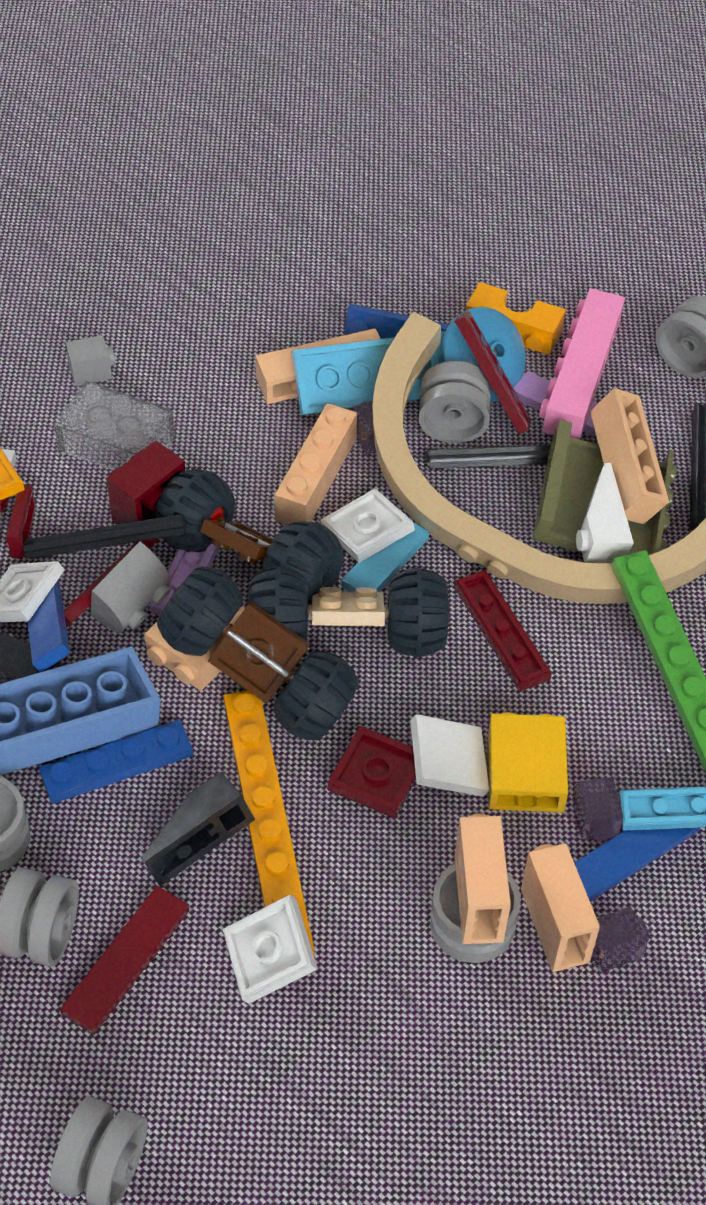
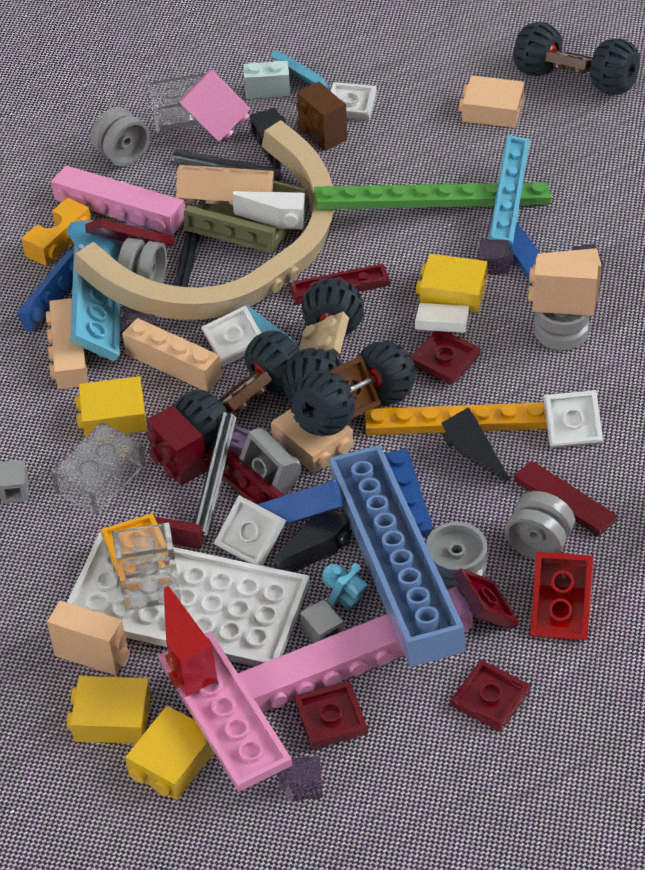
camera: 75 degrees left, 5 degrees down
(219, 426) = (113, 403): none -> yellow brick

